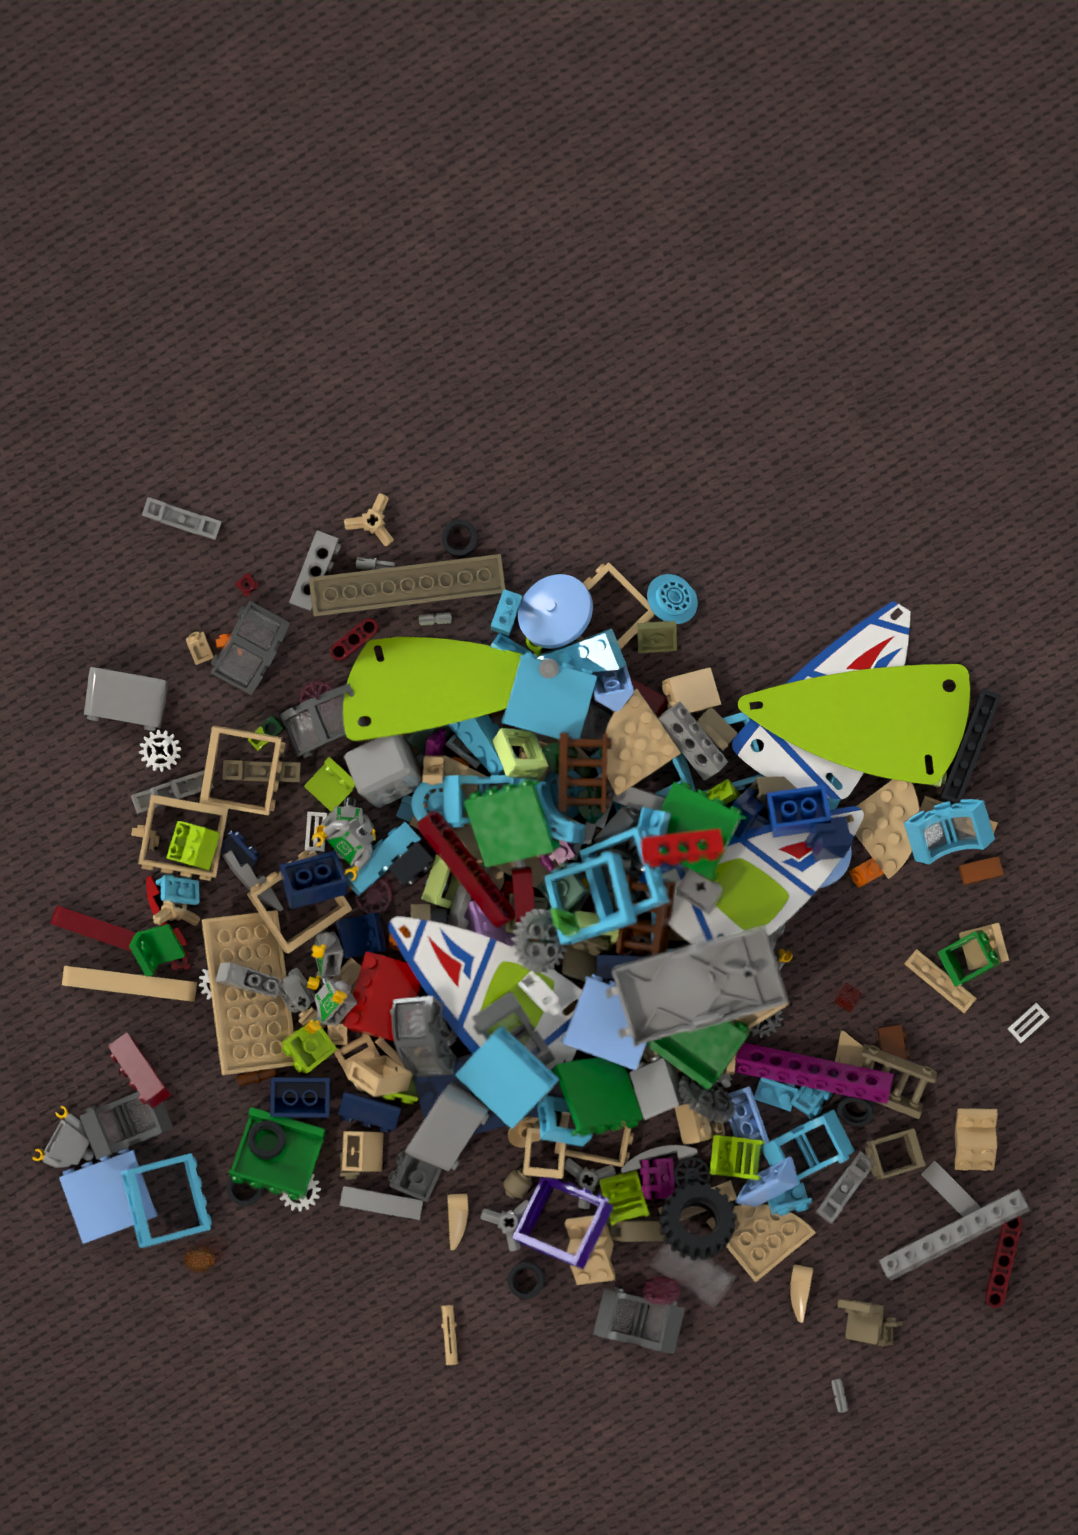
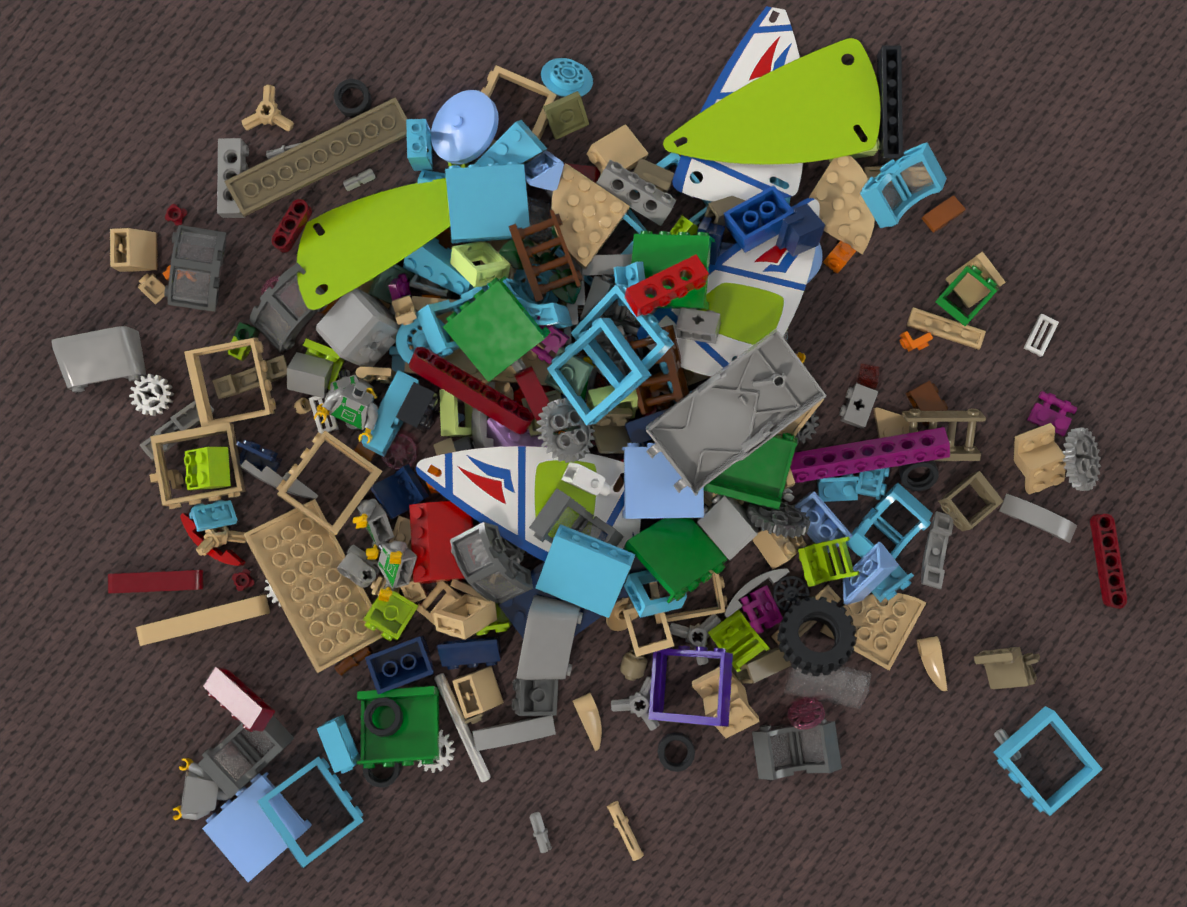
camera: 15 degrees left, 0 degrees up
(155, 947) = (211, 578): green bracket -> none
(181, 519) = (91, 178): light grey slope -> none
(196, 605) = (133, 250): none -> tan slope
(199, 1259) = (364, 852): clear orange head -> none
(215, 1149) = (339, 744): none -> medium azure window
(247, 979) = (306, 574): light grey slope -> none
(299, 817) = (298, 405): none -> tan hinge
(313, 879) = (332, 456): dark blue slope -> none
(317, 790) = (309, 374): none -> light grey slope
(334, 1182) = (462, 728): none -> white axle
(369, 1305) = (540, 832): none -> light grey axle
(387, 818) = (384, 375): none -> tan plate
(548, 668) = (474, 171): light grey plate -> none
(565, 922) = (582, 401): bright green slope -> none
(836, 1019) = (866, 399): none -> light grey brick
(856, 1389) = (1023, 736): none -> medium azure window
(909, 985) = (920, 343): none -> orange bracket
(954, 1235) = (1058, 554): light grey brick -> none
(1005, 1107) = (1042, 415): none -> magenta plate
(1020, 1143) = (1081, 459): none -> light grey gear

